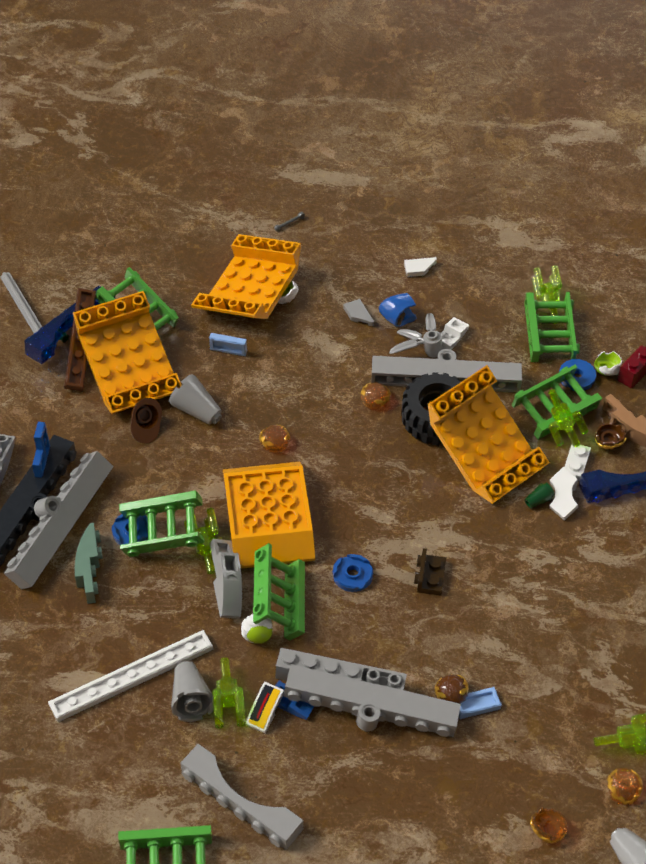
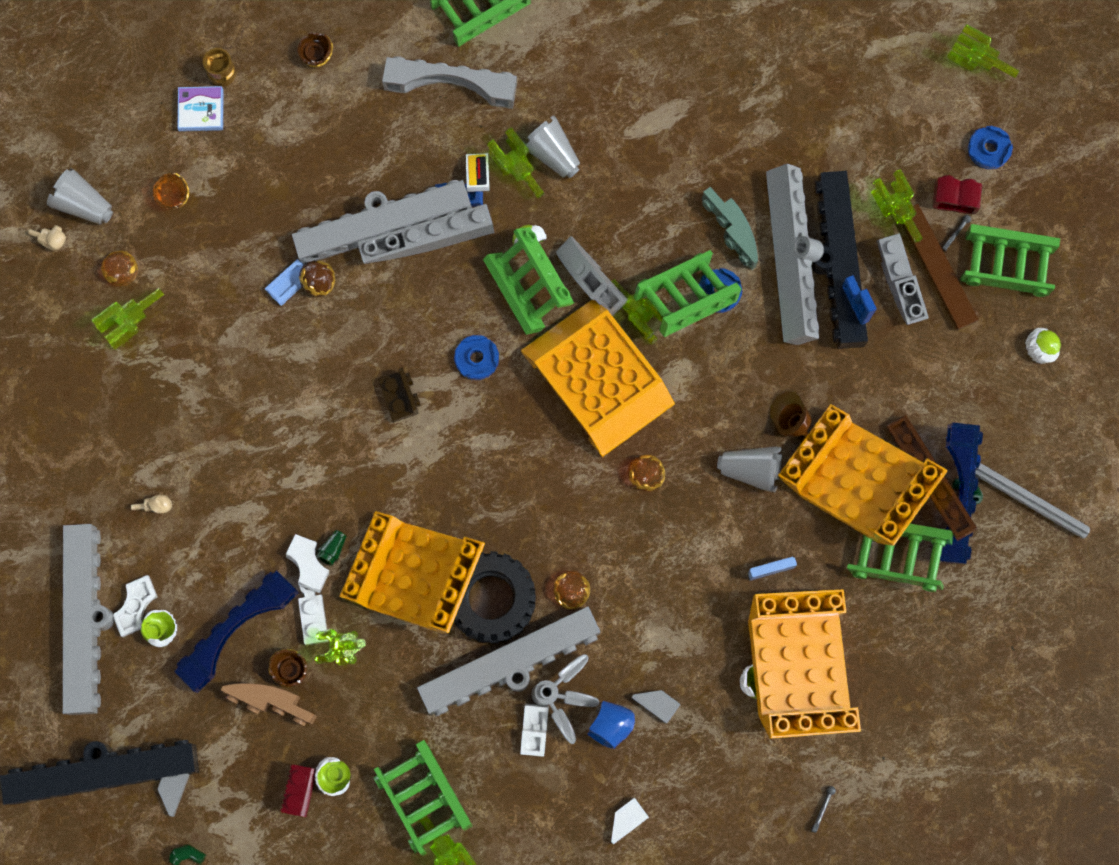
camera: 150 degrees right, 25 degrees up
(130, 676) = (617, 145): white tile -> none
(585, 369) = (353, 737): blue tile -> none
(586, 405) = (343, 685): bright green fence -> none

